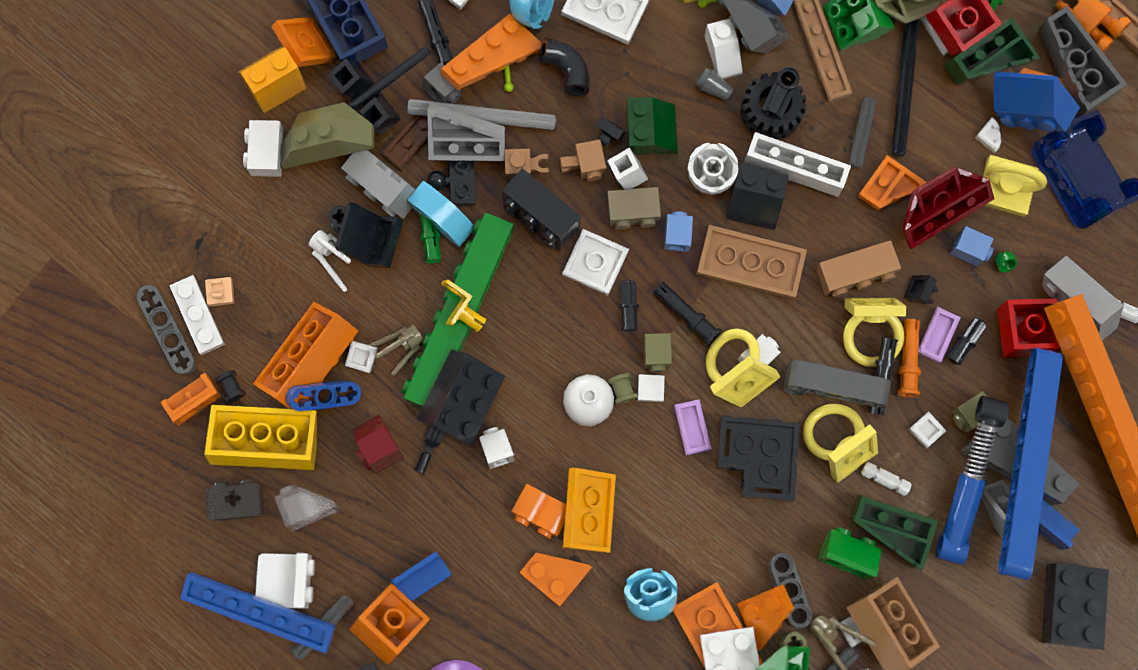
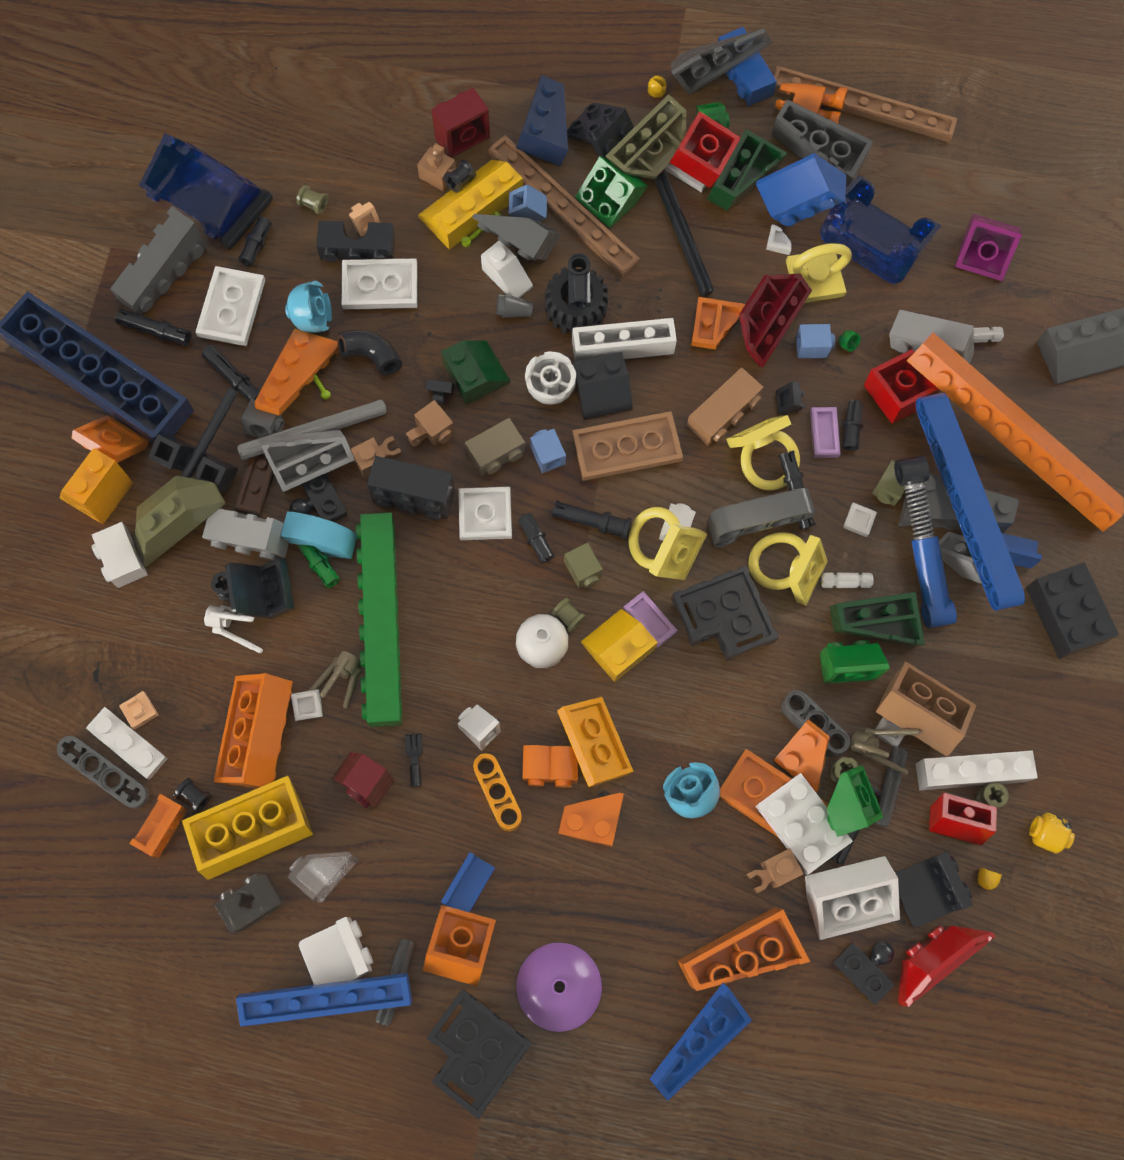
camera: 25 degrees left, 5 degrees down
(313, 389) = (275, 758): blue beam -> none
(461, 397) = (421, 695): black brick -> none
(462, 311) = (383, 613): yellow bracket -> none
(484, 499) = (493, 779): none -> light orange beam
(627, 169) = (473, 415): white brick -> none
(651, 388) = (594, 602): white tile -> none
(654, 436) = (619, 644): none -> yellow slope
(862, 132) = (666, 288): dark grey axle -> none
(909, 370) = (816, 474): orange pin -> none

